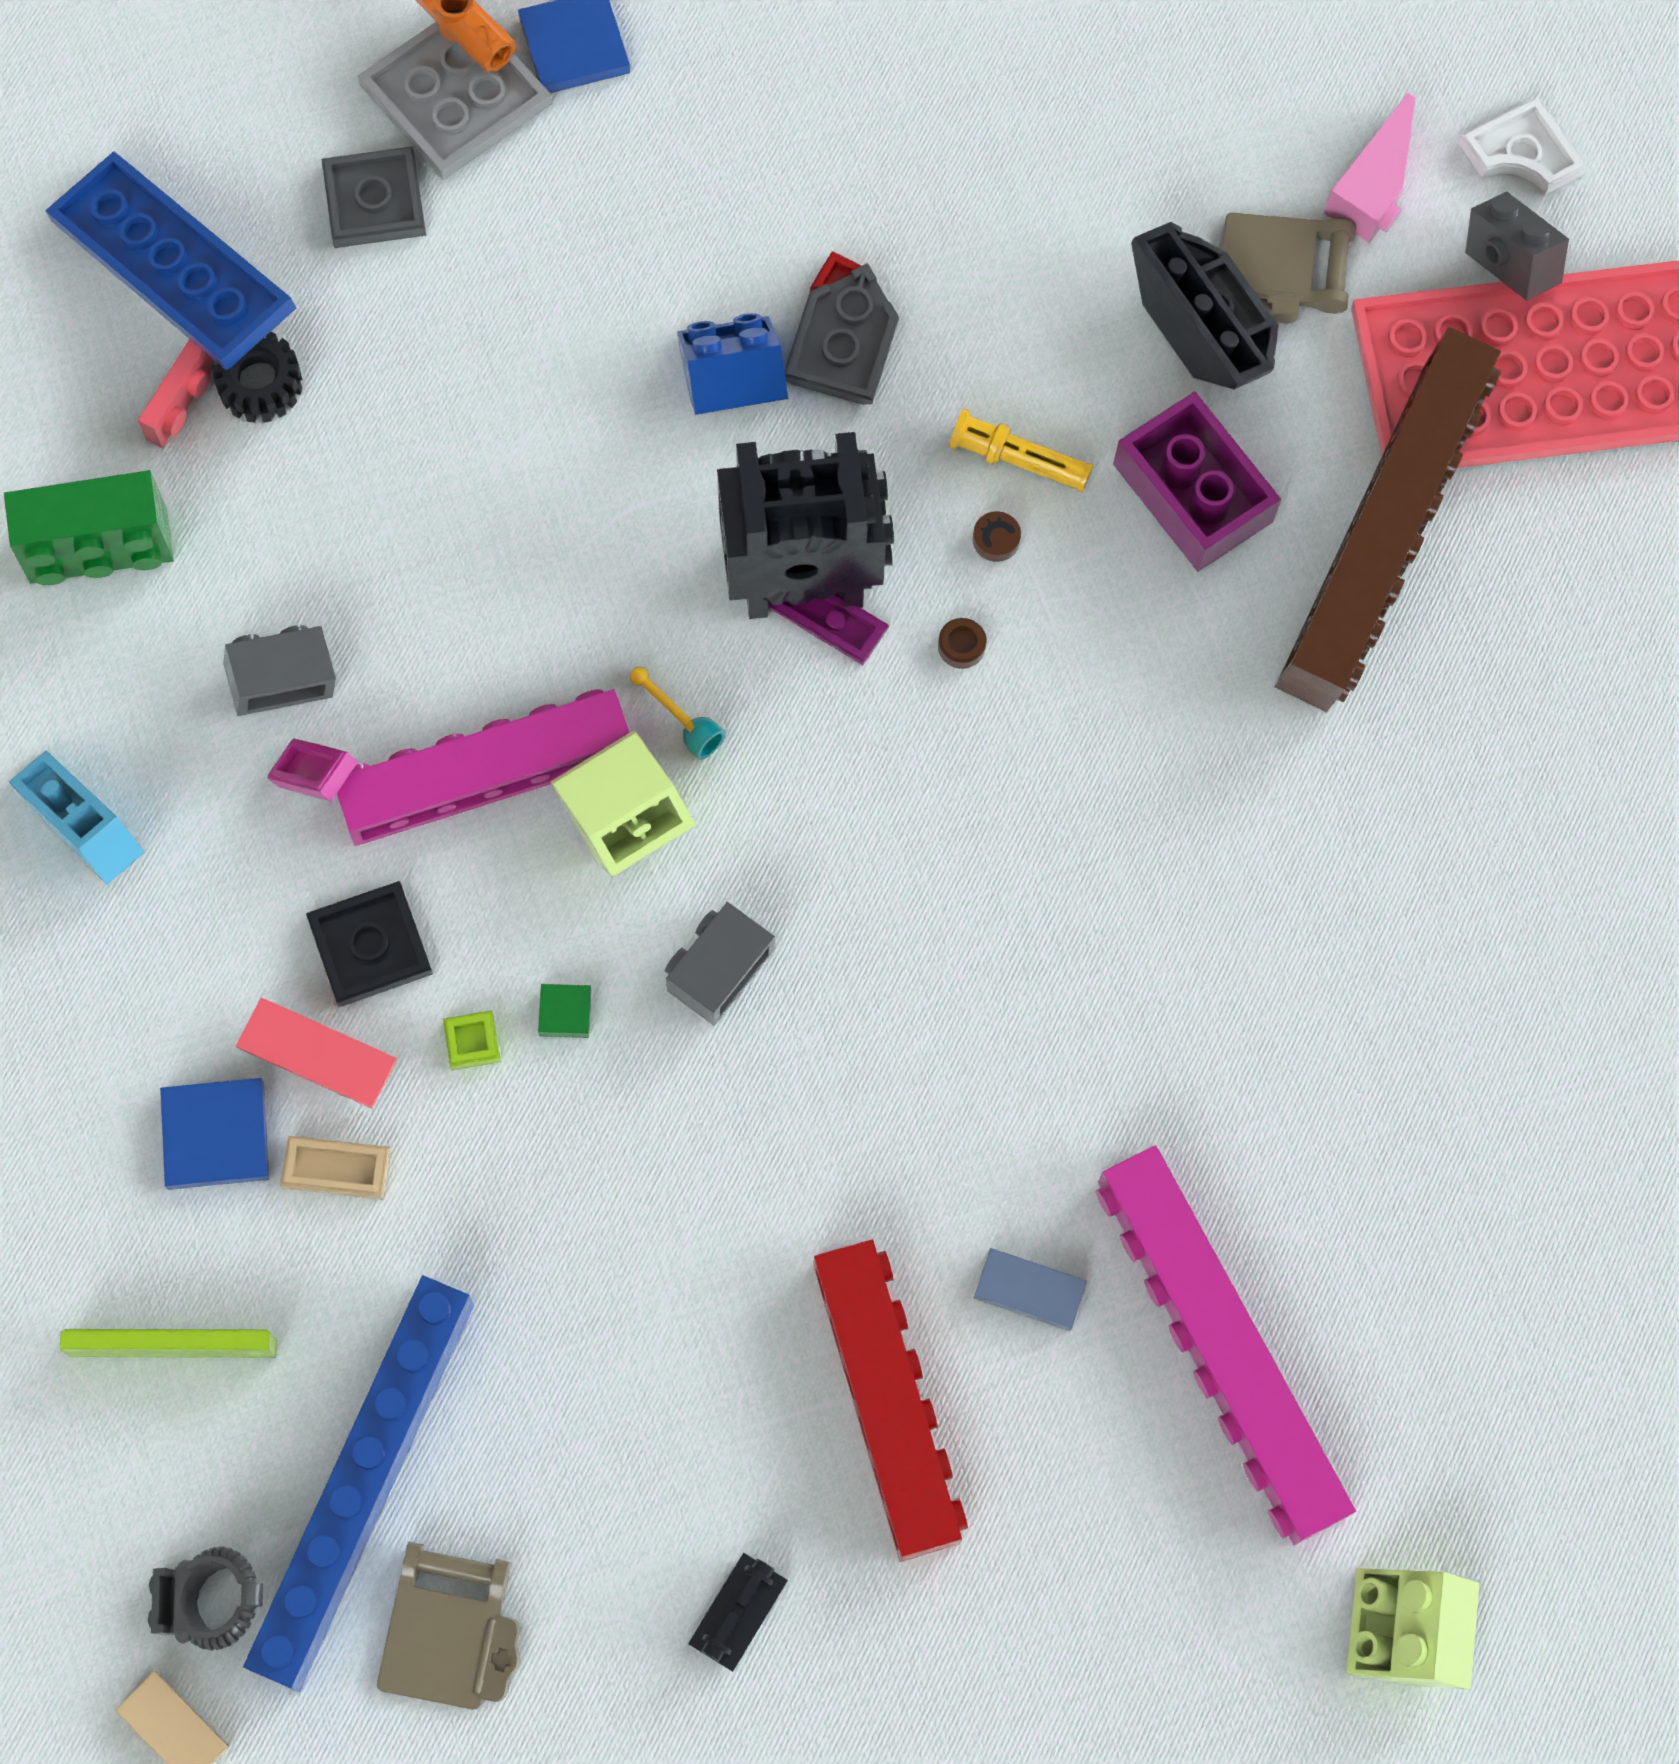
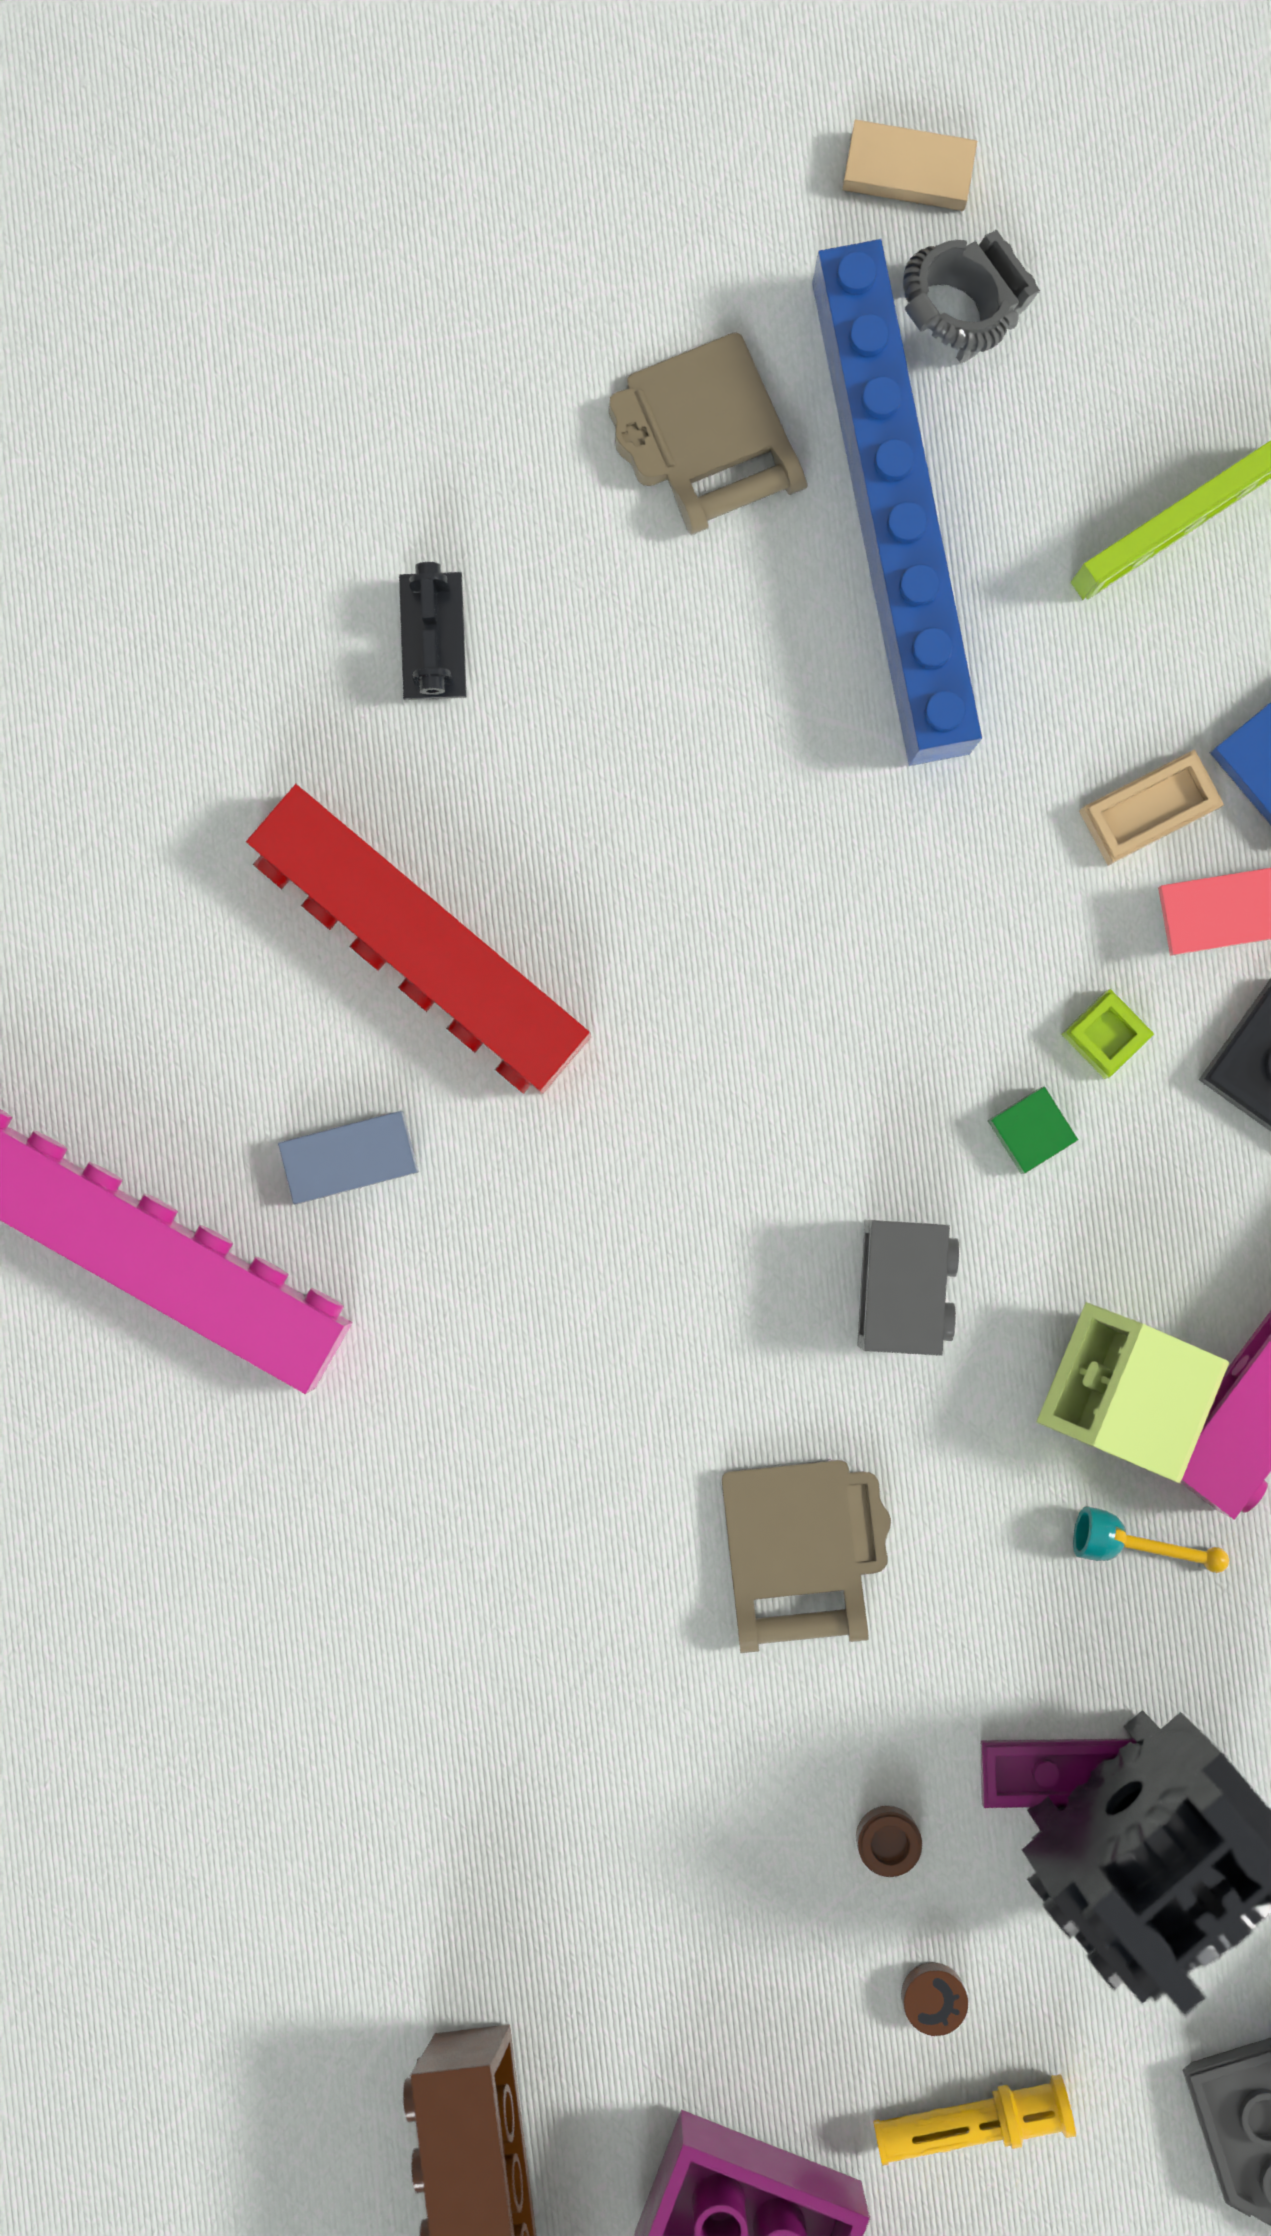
camera: 150 degrees right, 15 degrees up
(891, 857) = (801, 1535): none -> dark tan piece

